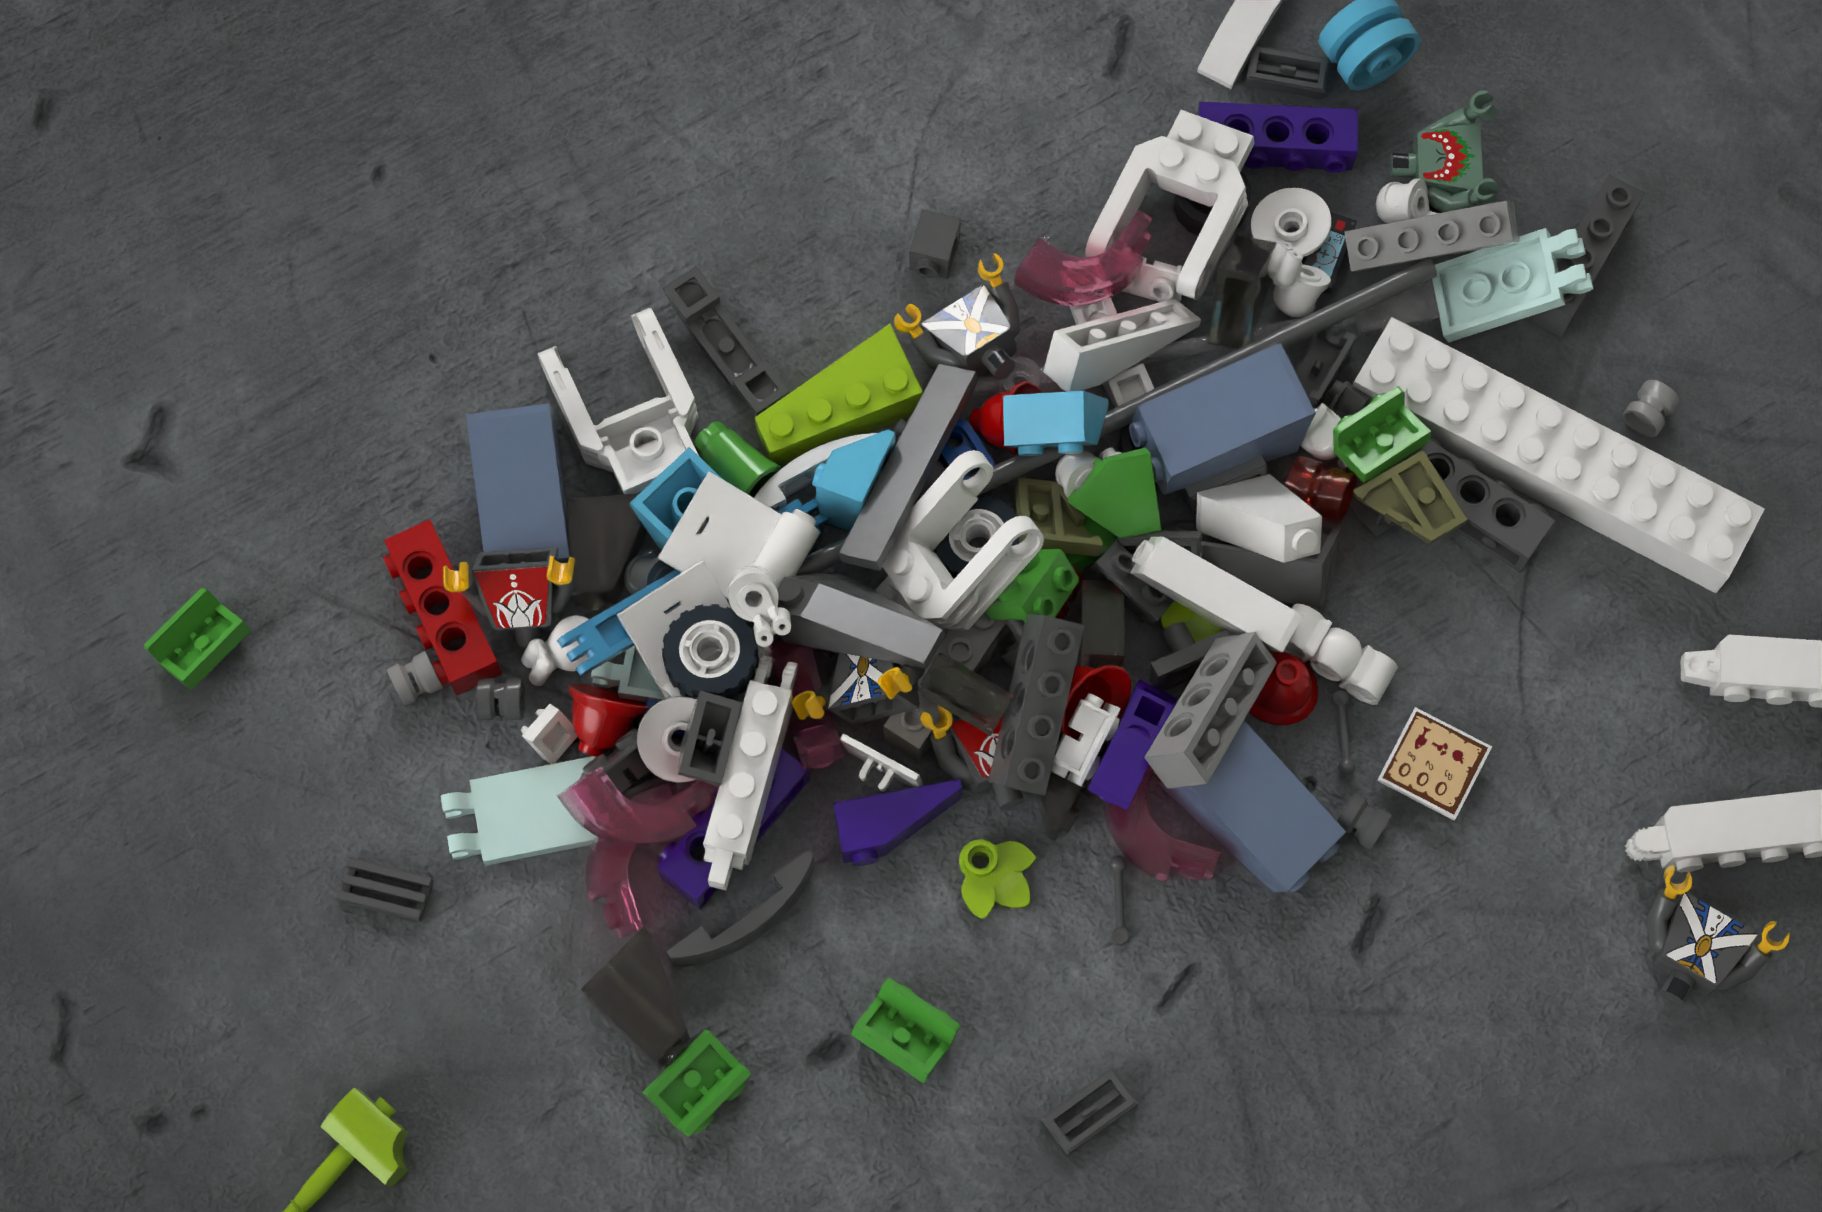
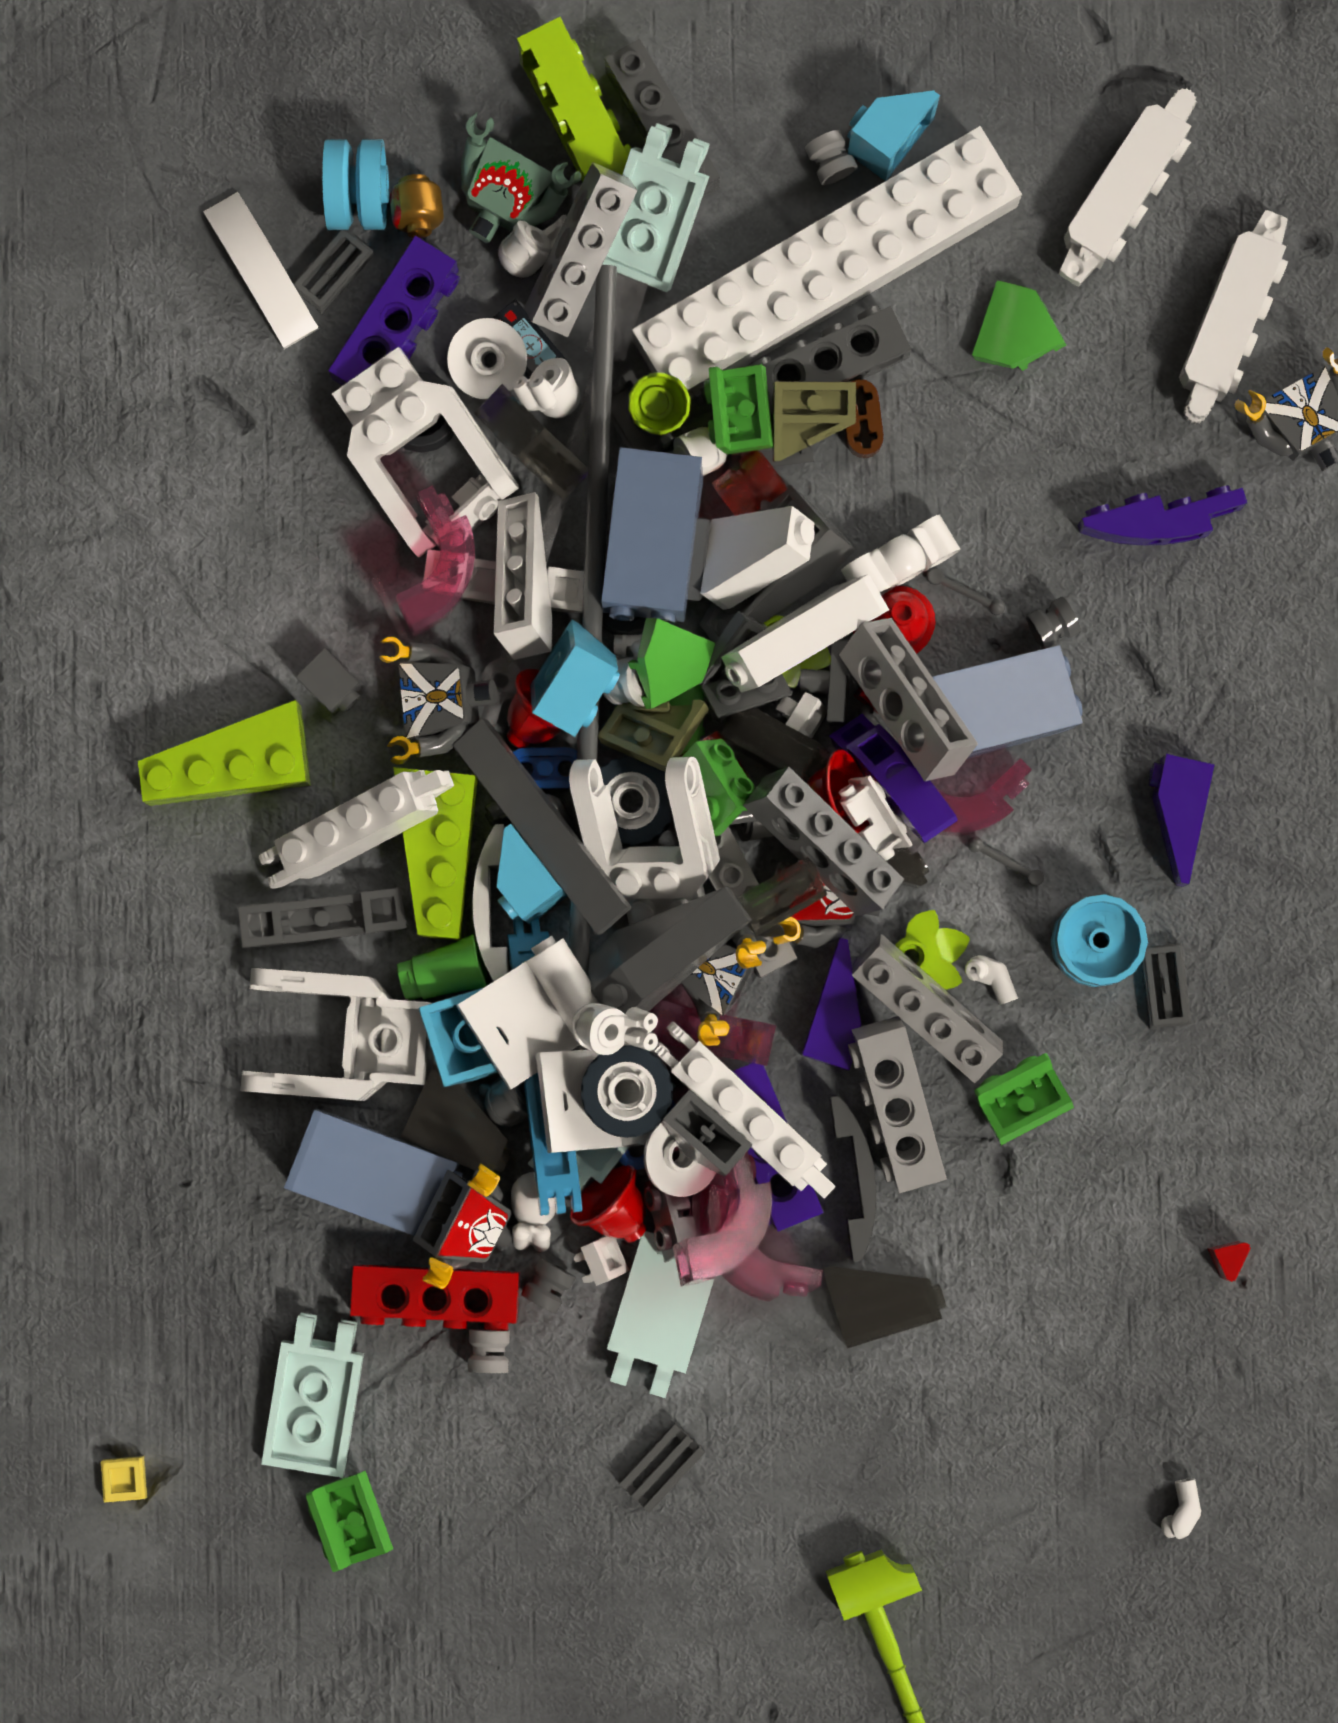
camera: 60 degrees left, 15 degrees up
(145, 440) = (123, 1479): none -> light yellow tile
(295, 557) = (314, 1400): none -> light aqua tile
(697, 1084) = (975, 1292): bright green bracket -> none
(821, 318) = (356, 826): none -> white hinge
(823, 204) = (235, 760): none -> lime wedge
(882, 763) = (791, 994): white piece -> none
(888, 873) = (922, 1162): none -> light grey brick
(939, 892) = (927, 1008): none -> light grey brick
(1007, 943) = (994, 974): none -> white arm
(1114, 1002) = (1074, 944): none -> medium azure wheel
(1143, 645) = (805, 715): none -> white tile
(1271, 1027) = (1180, 805): none -> dark purple slope
(1341, 366) = (659, 403): none -> lime hair
(1384, 102) = (416, 205): none -> pearl gold head
(1434, 763) = (1038, 535): piece -> none
(1445, 566) = (871, 418): none -> reddish brown beam
(1507, 856) = (1148, 523): none -> dark purple slope
(1559, 170) = (571, 98): none -> lime wedge
(1607, 646) = (1016, 328): none -> bright green slope
(1712, 438) = (890, 129): none -> medium azure slope

